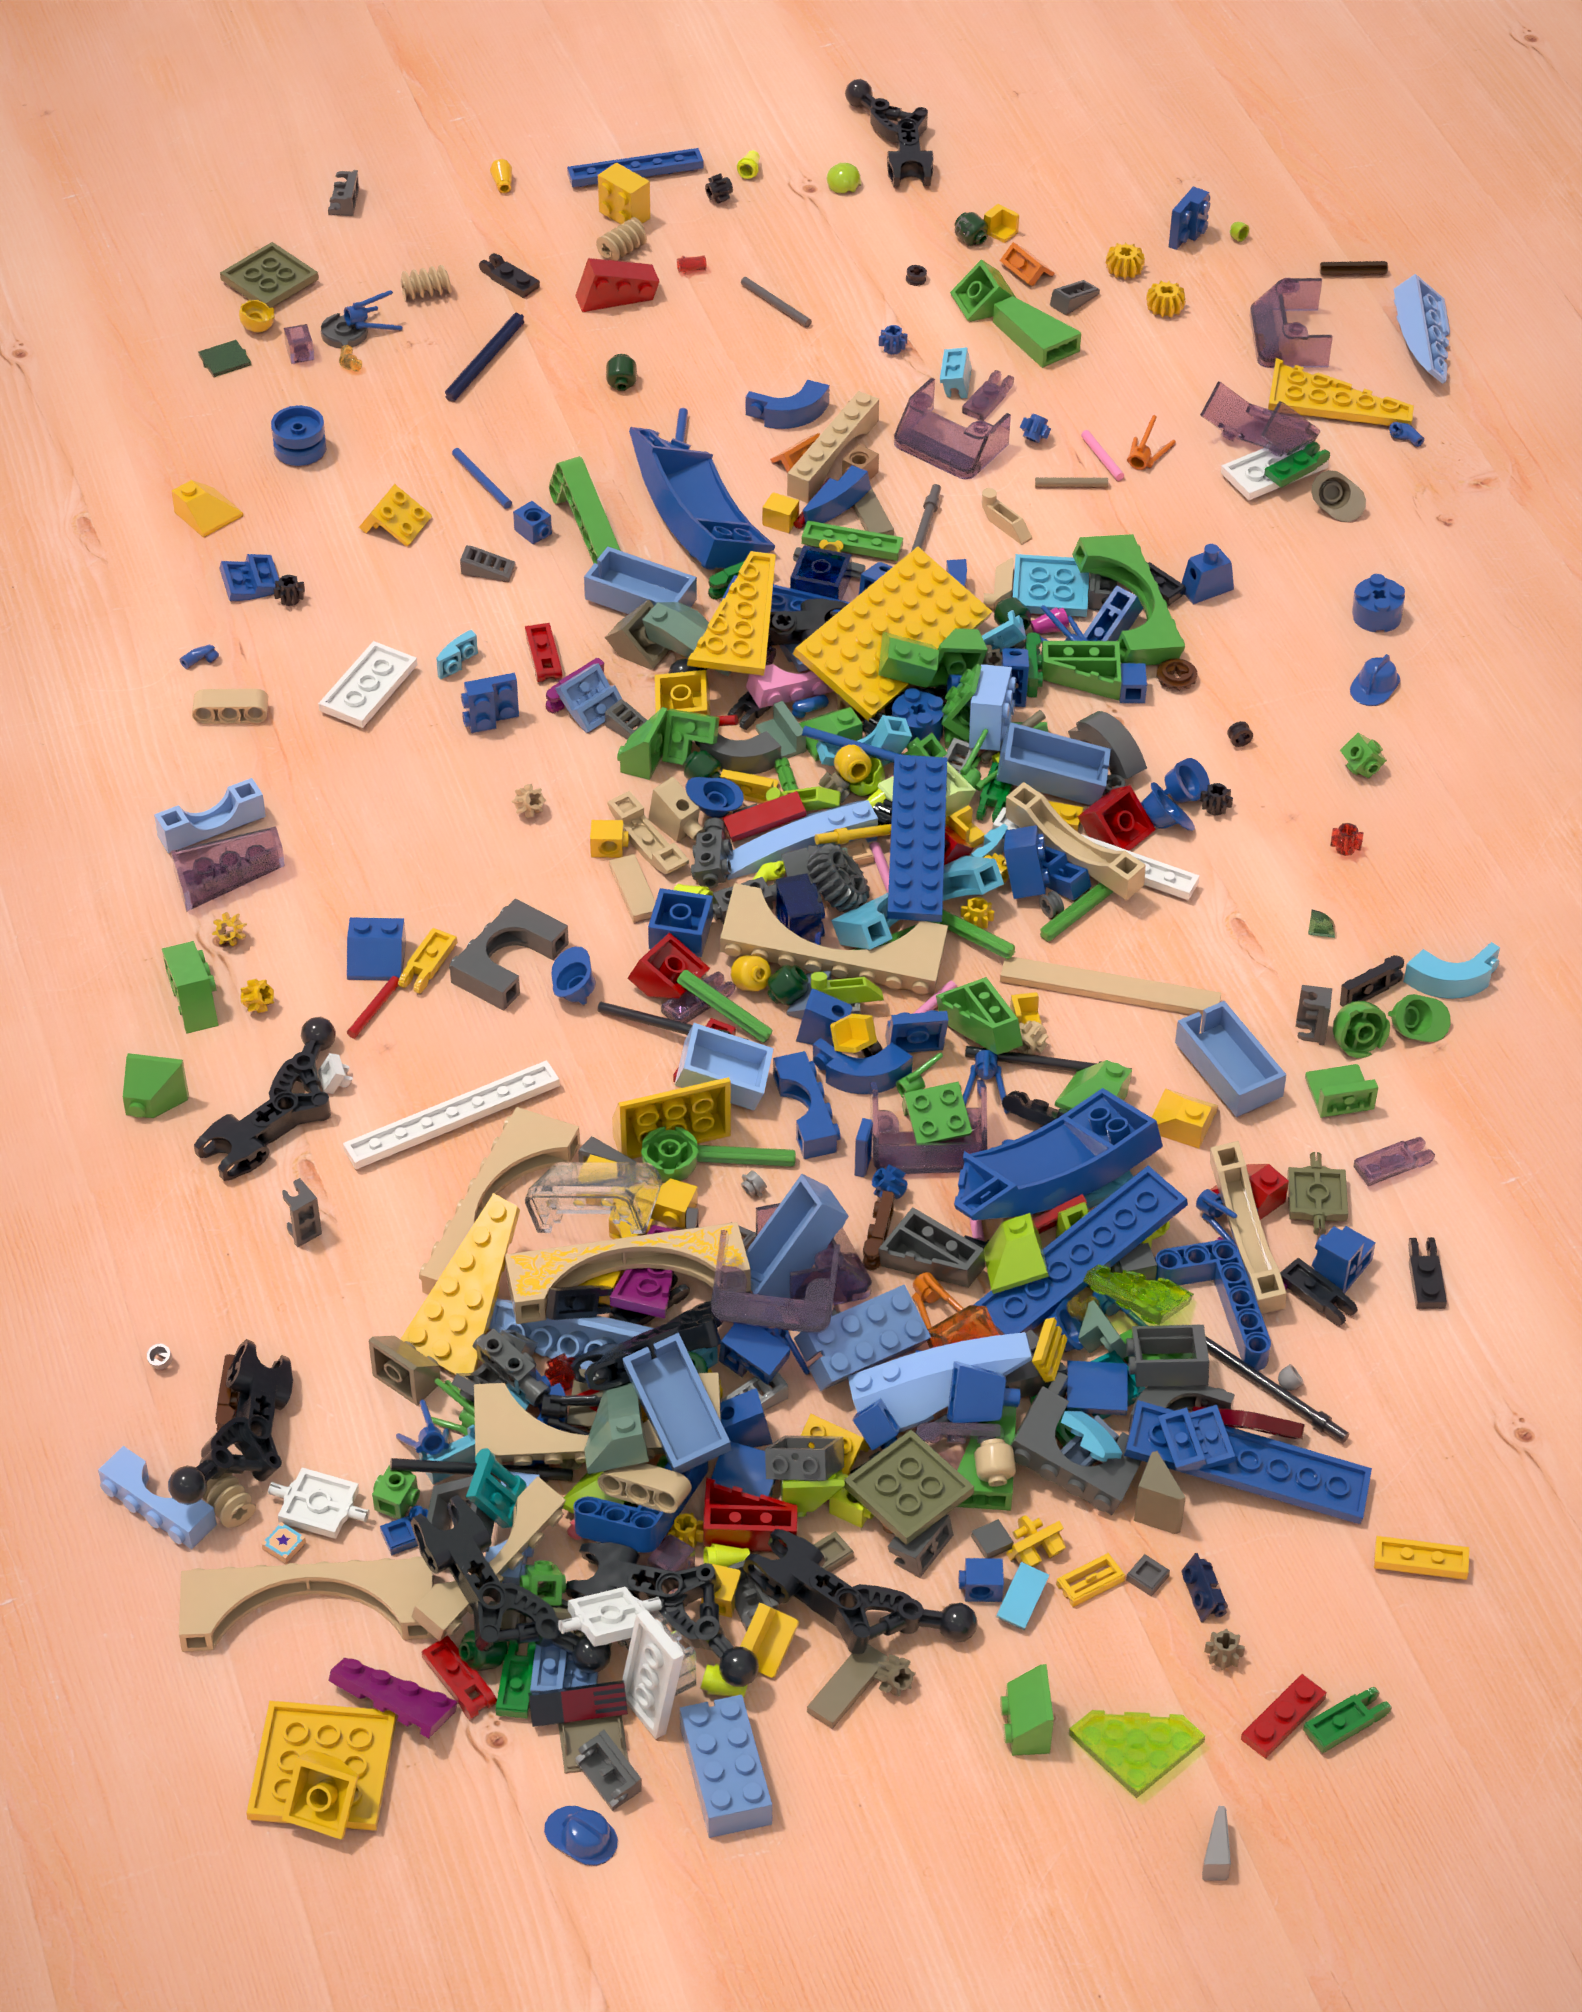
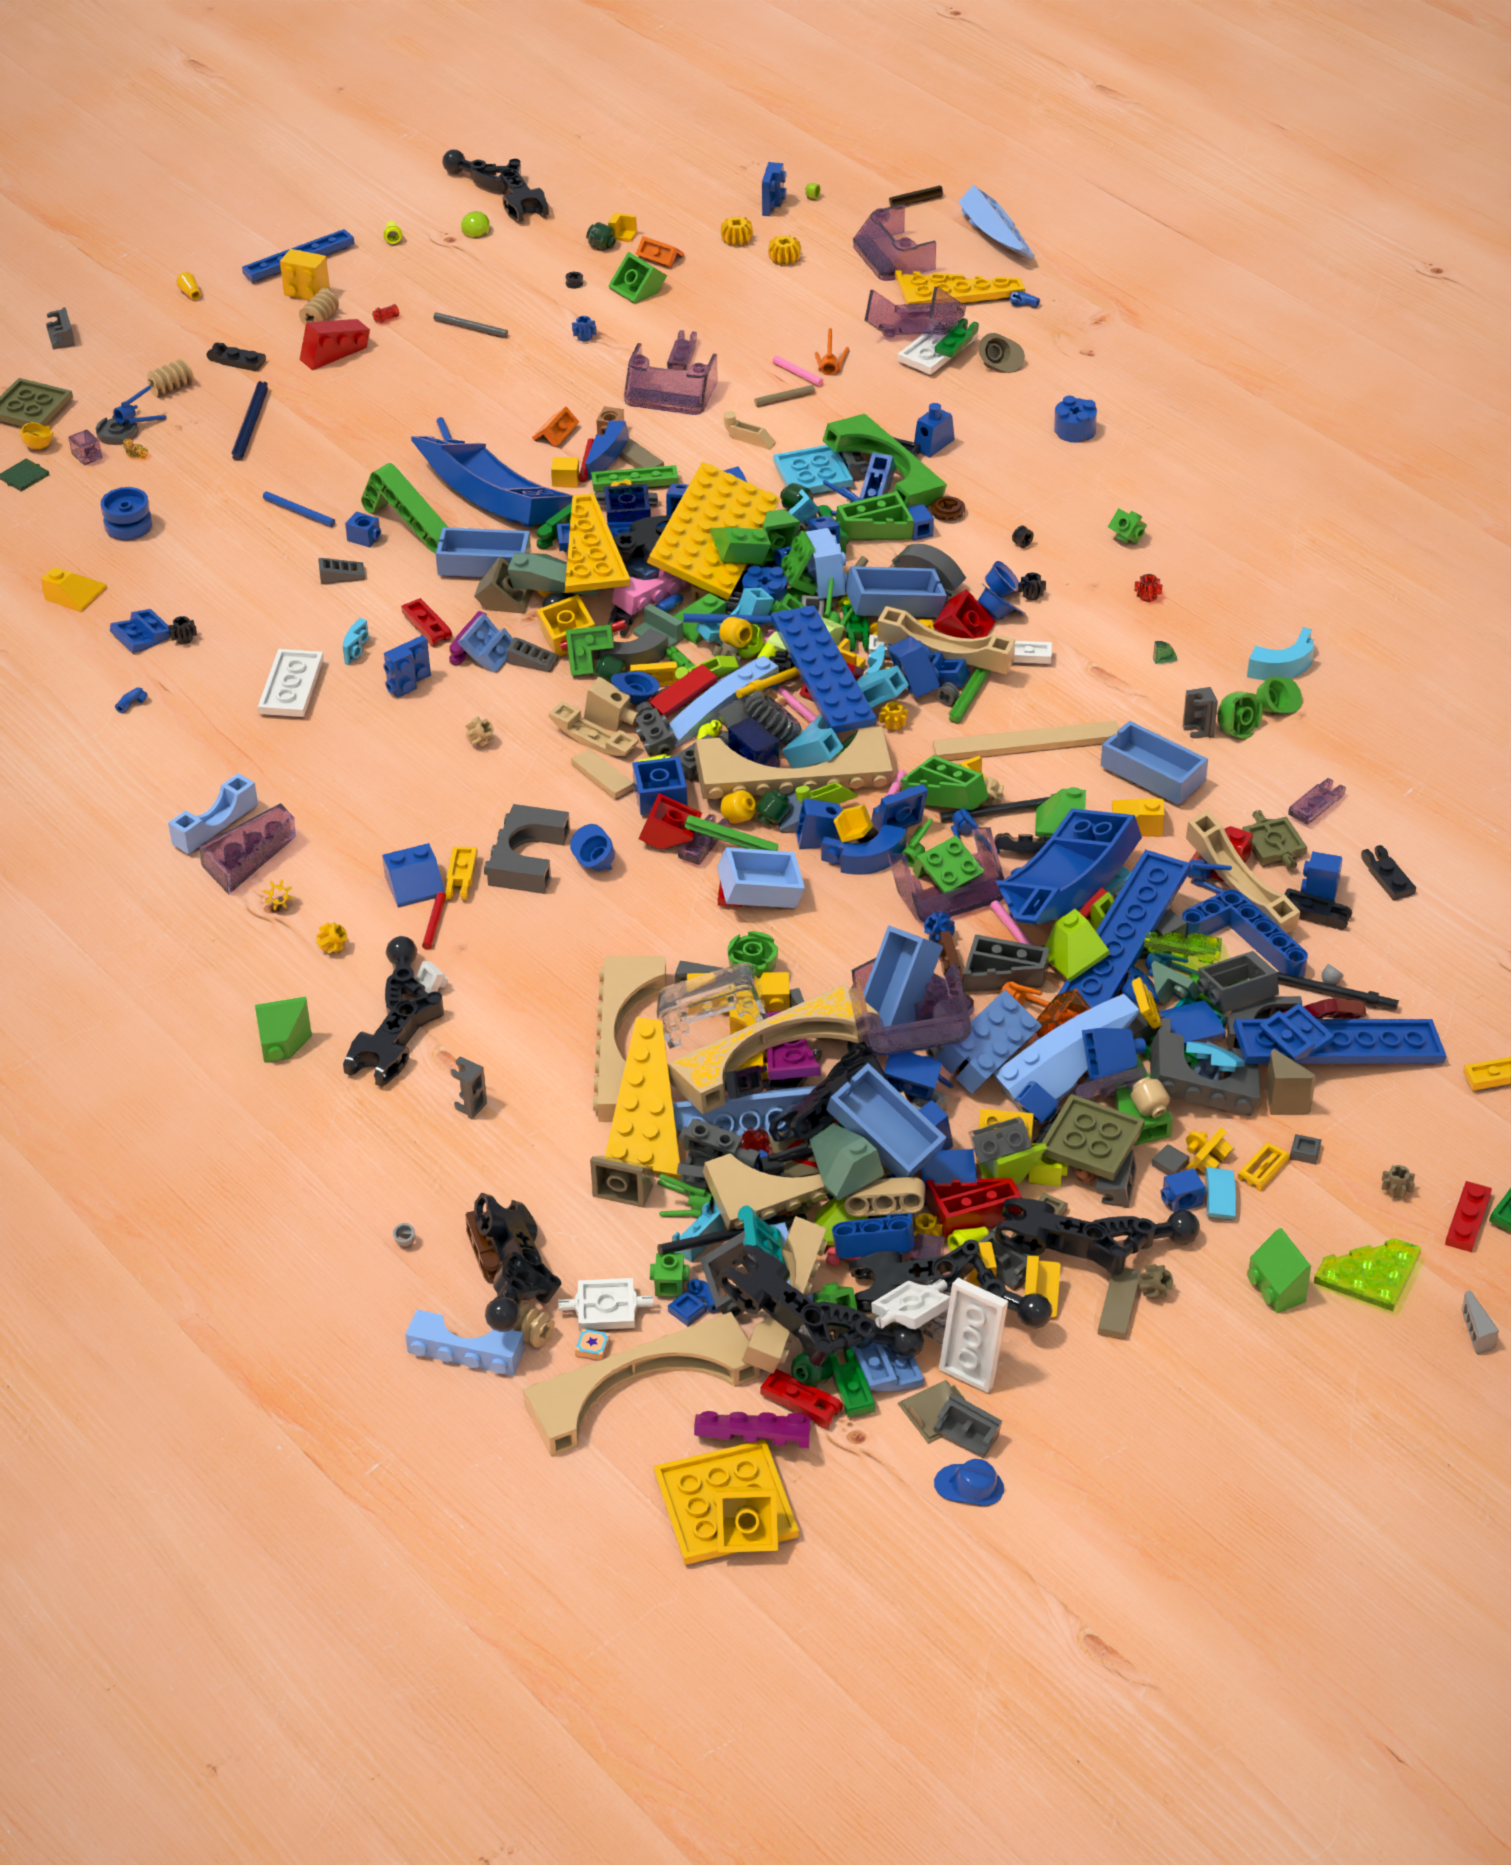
camera: 20 degrees left, 5 degrees down
(191, 985) = (271, 943): bright green wedge -> none
(230, 706) = (180, 729): tan beam -> none
(397, 515) = (244, 550): yellow bracket -> none
(430, 1437) = (679, 1221): blue plant -> none
(451, 1114) = (547, 981): white plate -> none
(578, 1703) = (914, 1383): tile -> none
(608, 838) = (561, 742): yellow brick -> none
(621, 372) = (374, 403): dark green head -> none
(644, 747) = (554, 667): bright green slope -> none
(646, 1018) = (672, 864): black bar -> none
(696, 1108) = (758, 911): yellow slope -> none
(715, 1685) = (1017, 1333): neon yellow cone -> none
(719, 188) = (378, 253): black gear -> none
(725, 1766) = (1061, 1392): medium blue piece -> none
(746, 1155) = (814, 941): bright green axle -> none
(753, 1184) = (828, 960): light grey plate -> none
(792, 410) = (526, 399): blue arch -> none
(797, 1080) = (857, 906): blue arch -> none
(811, 469) = (574, 431): tan arch -> none
(863, 1147) = (906, 905): blue tile -> none
(930, 506) = (683, 439): dark grey bar -> none
(956, 371) = (649, 337): medium azure hinge -> none
(978, 935) = (908, 731): bright green axle -> none
(1002, 586) = (773, 478): tan piece -> none
(1035, 428) = (735, 363): blue gear -> none
(1036, 332) = (695, 296): bright green slope -> none
(1044, 624) = (828, 496): dark pink cone -> none
(1070, 297) = (708, 266): dark grey slope -> none
(1077, 1309) = (1144, 970): clear yellow arm -> none
(1199, 1578) = (1354, 1144): dark blue hinge -> none
(1341, 1090) = (1249, 763): bright green bracket -> none
(1372, 981) = (1229, 678): black hinge -> none
(1375, 681) = (1102, 474): blue piece -> none

